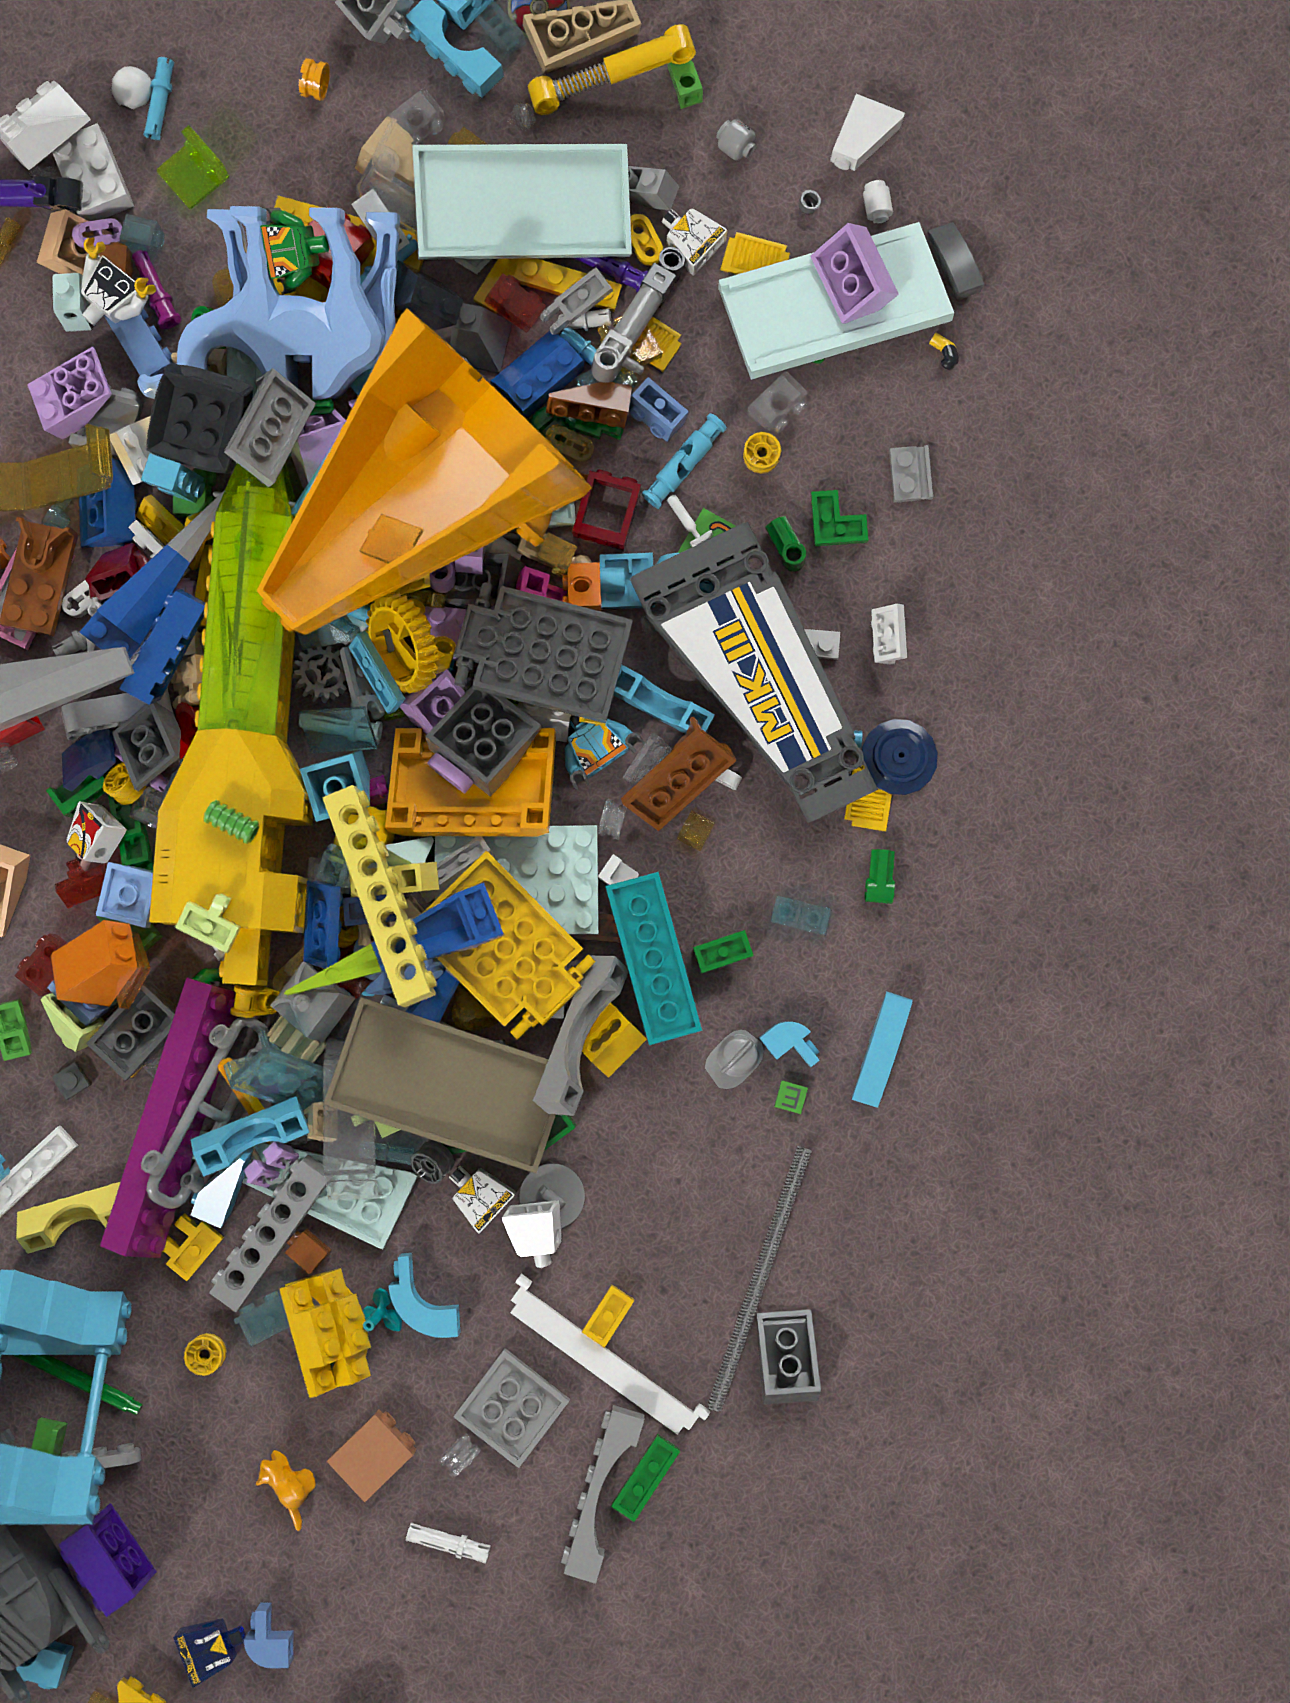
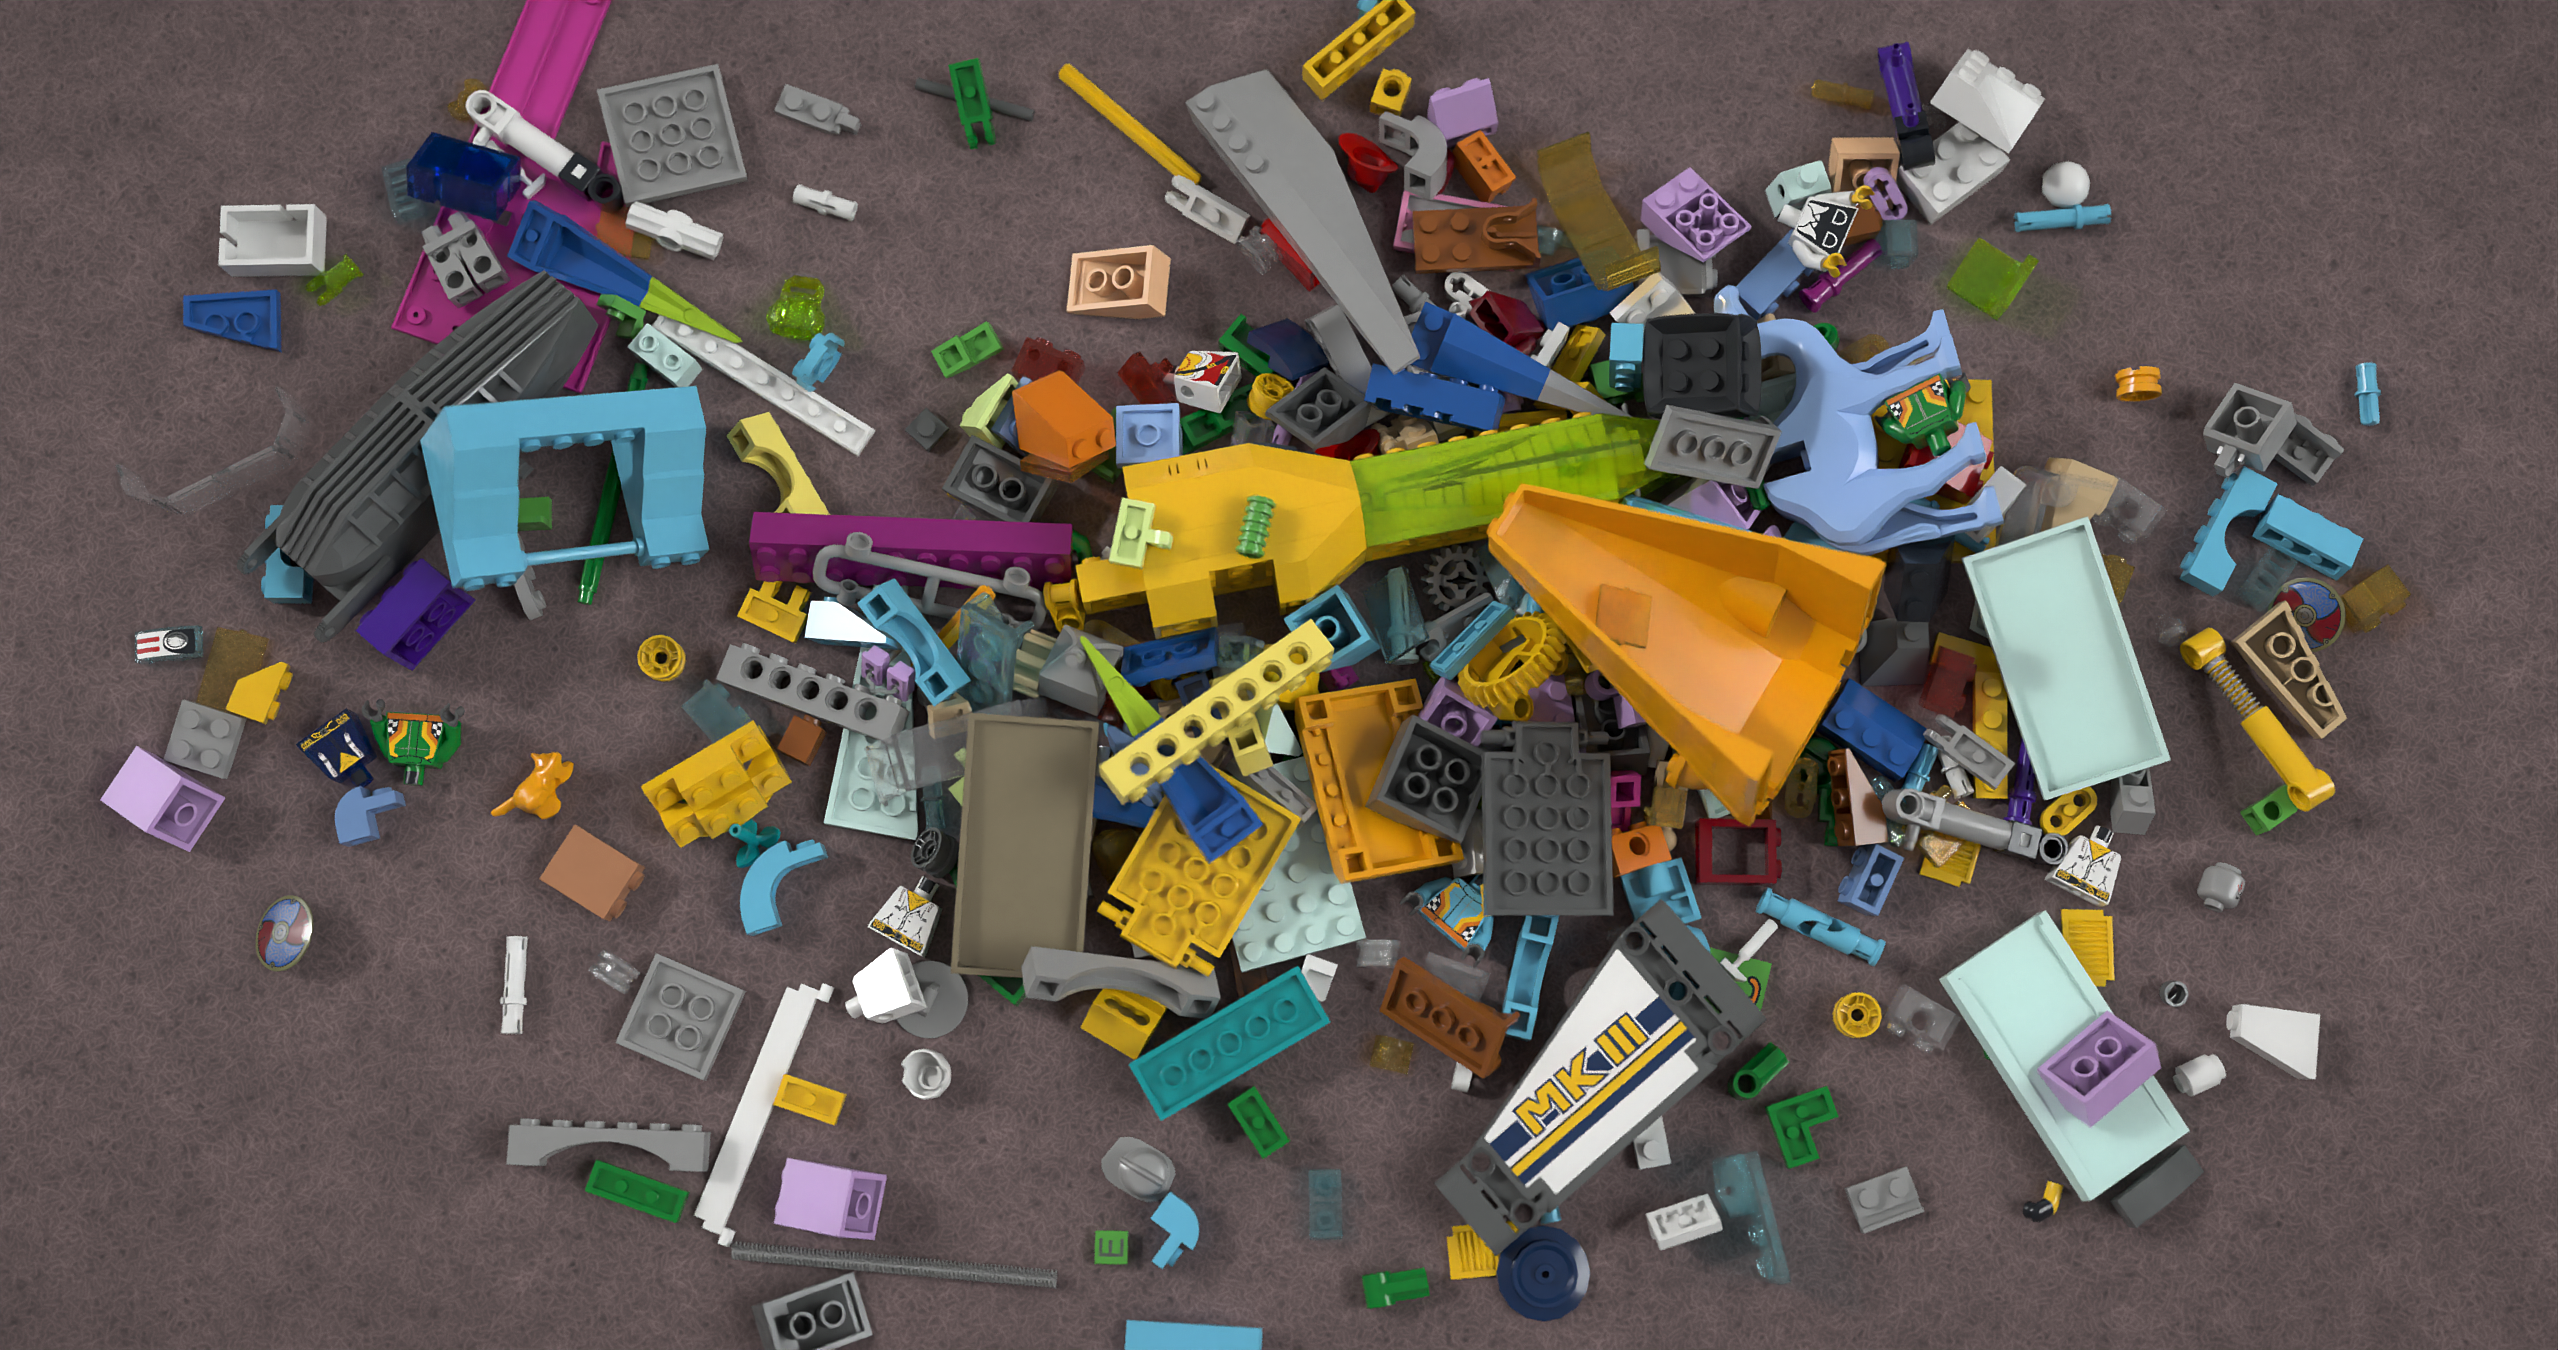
camera: 70 degrees right, 5 degrees down
(216, 1581) = (415, 739): none -> torso
(450, 772) = (1380, 753): lavender beam -> none
(612, 1213) = (926, 1073): none -> white hair
(694, 1318) = (830, 1199): none -> lavender slope
(882, 575) = (1750, 1196): none -> clear light blue plate

